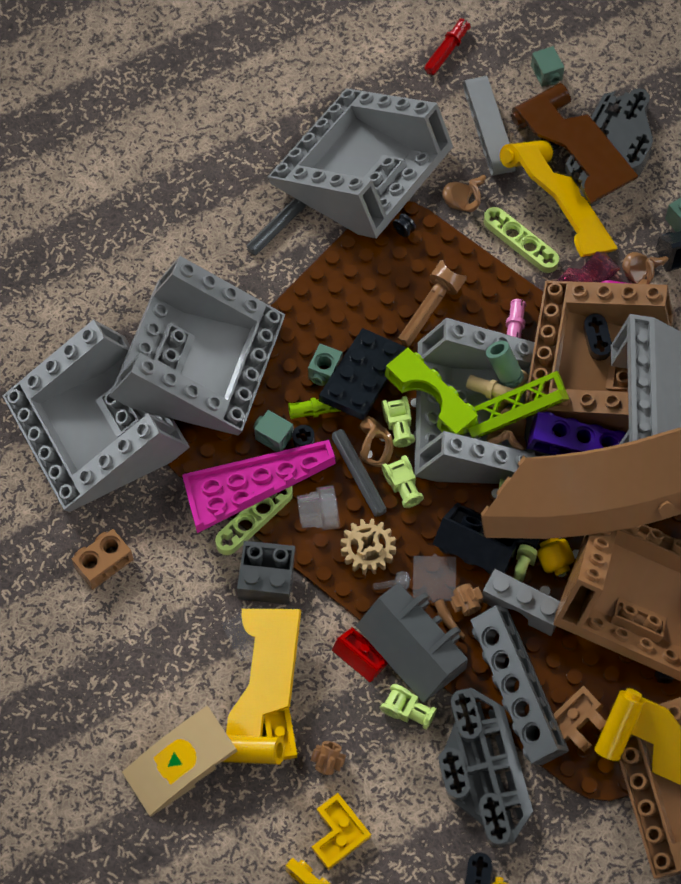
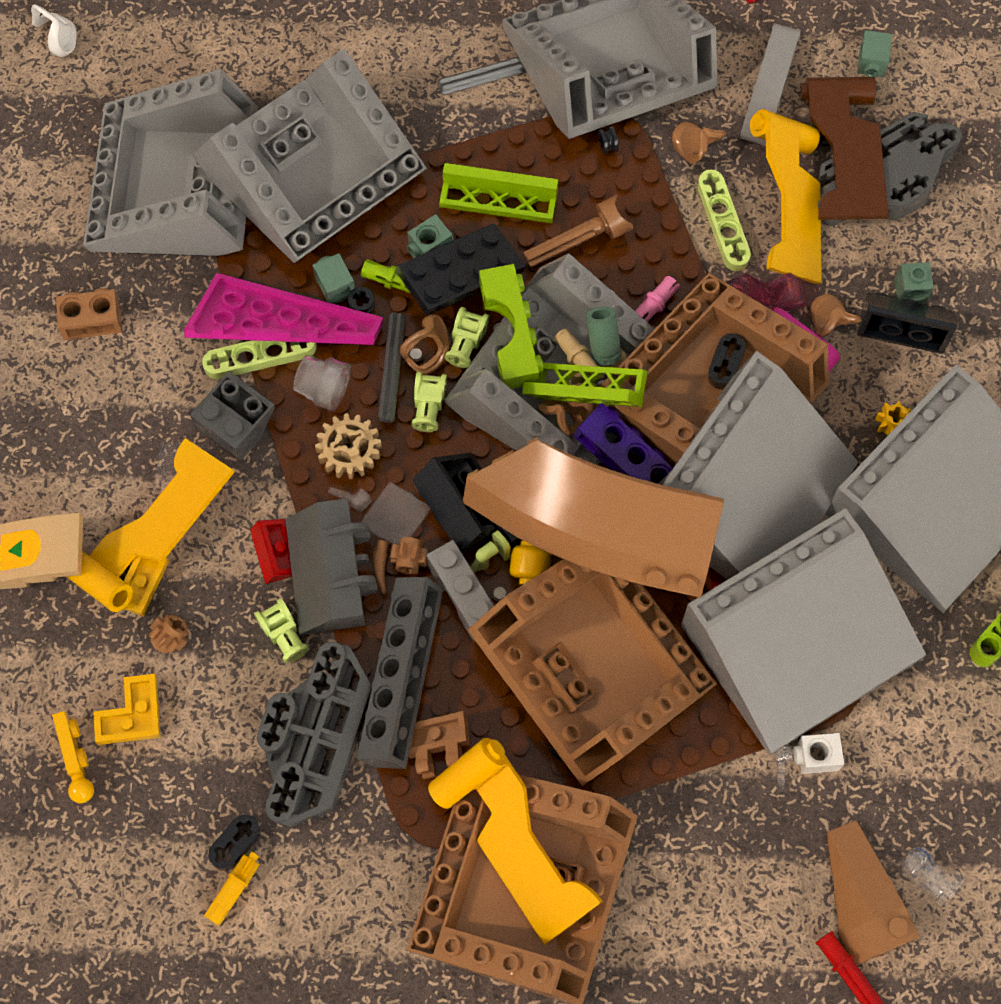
camera: 30 degrees right, 5 degrees up
(347, 297) = (498, 183): none -> lime fence

